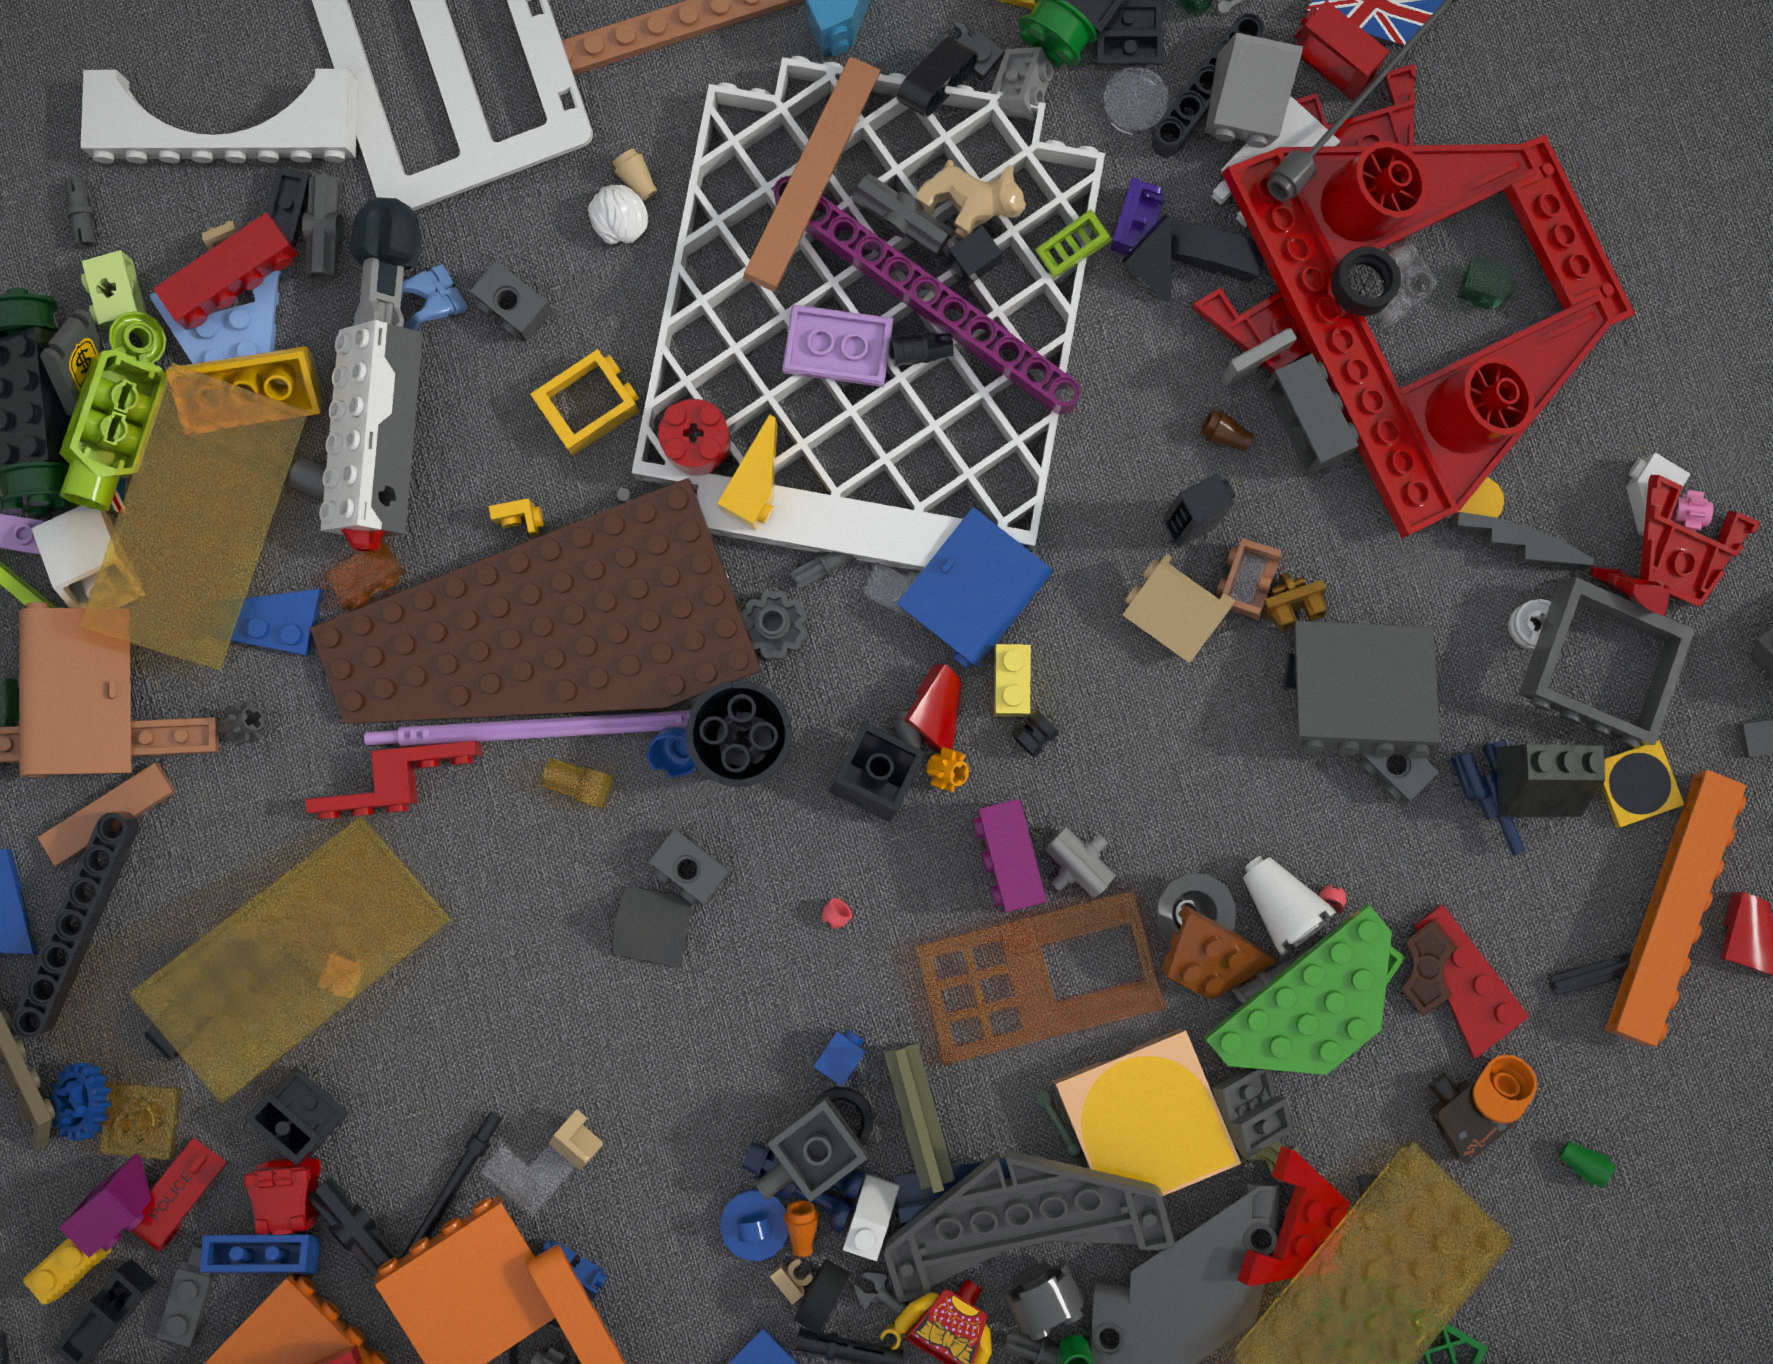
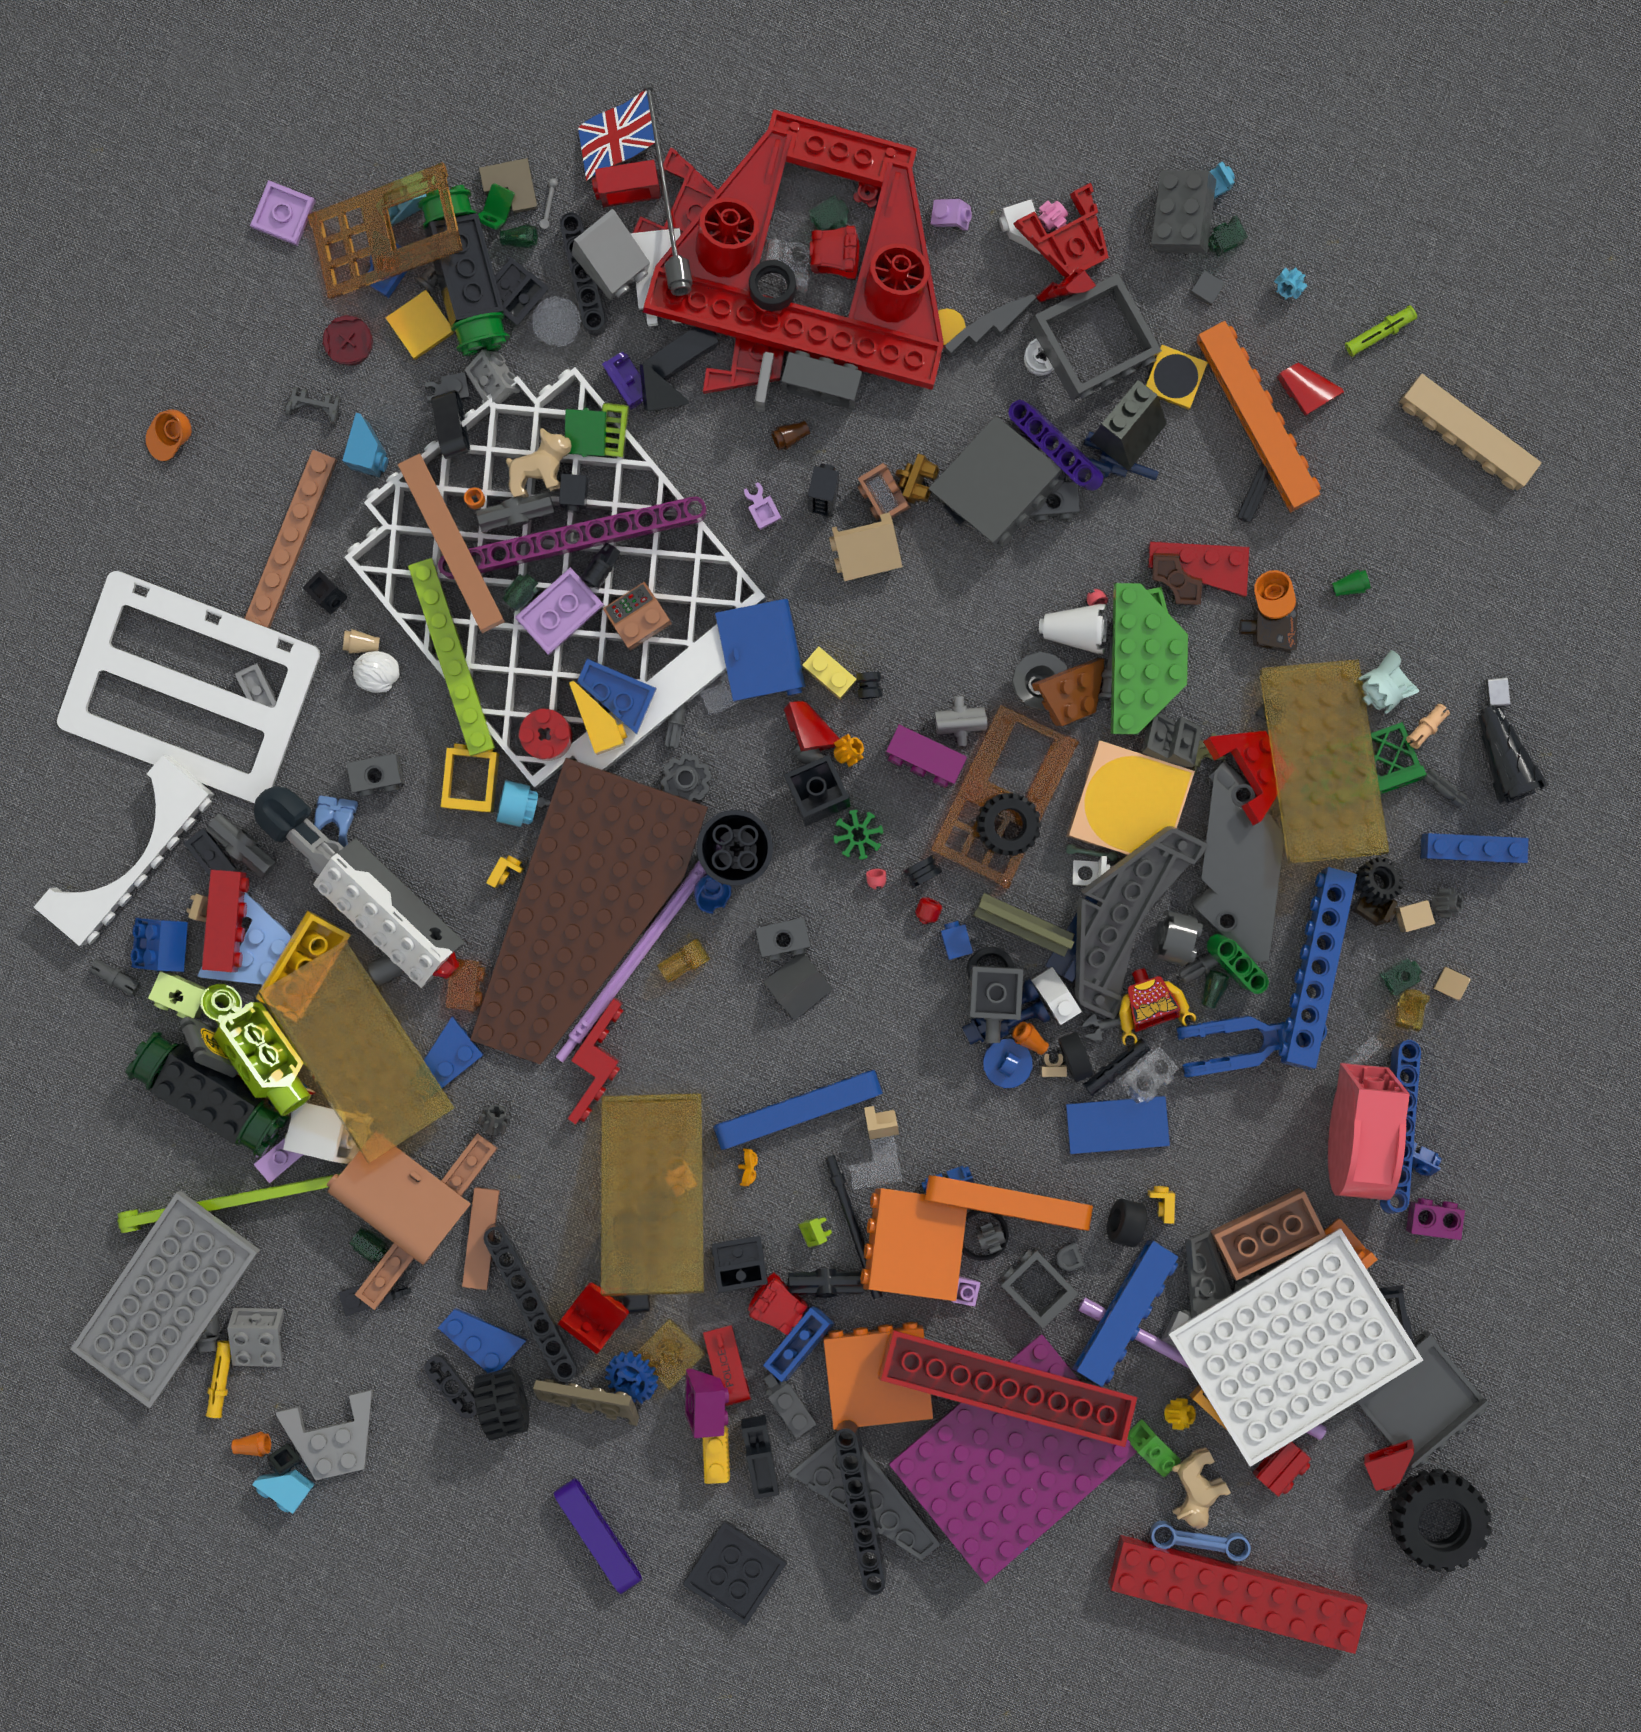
camera: 50 degrees left, 5 degrees up
(106, 1009) = (593, 1317): none -> red bracket
(150, 229) = (159, 944): none -> blue slope
(397, 1166) = (813, 1231): none -> lime tile
(420, 1034) = (750, 1162): none -> light orange piece
(503, 107) = (256, 685): none -> light grey hinge
(518, 1038) = (797, 1109): none -> blue beam
(598, 470) = (516, 804): none -> medium azure piece
(657, 98) = (325, 592): none -> black bracket
(695, 275) = (451, 657): none -> lime plate
(803, 477) = (618, 693): none -> blue wing
(824, 288) = (520, 591): none -> clear green brick
(848, 999) = (928, 910): none -> red piece
(858, 848) = (850, 836): none -> green gear
(874, 158) = (469, 501): none -> orange hinge
(884, 957) = (922, 871): none -> black wheel
(899, 429) = (637, 616): none -> nougat slope
(1016, 1038) = (1029, 830): none -> black tyre
(1046, 1147) = (1097, 868): none -> white bracket
(1048, 217) = (586, 431): none -> green piece
(1124, 469) = (763, 510): none -> lavender plate
(1455, 318) = (835, 252): none -> red piece
(1459, 730) = (1064, 450): none -> dark purple beam
(1514, 1296) = (1387, 684): none -> light aqua hat
(1539, 311) = (870, 199): none -> red plate
(1599, 405) = (951, 213): none -> lavender bracket

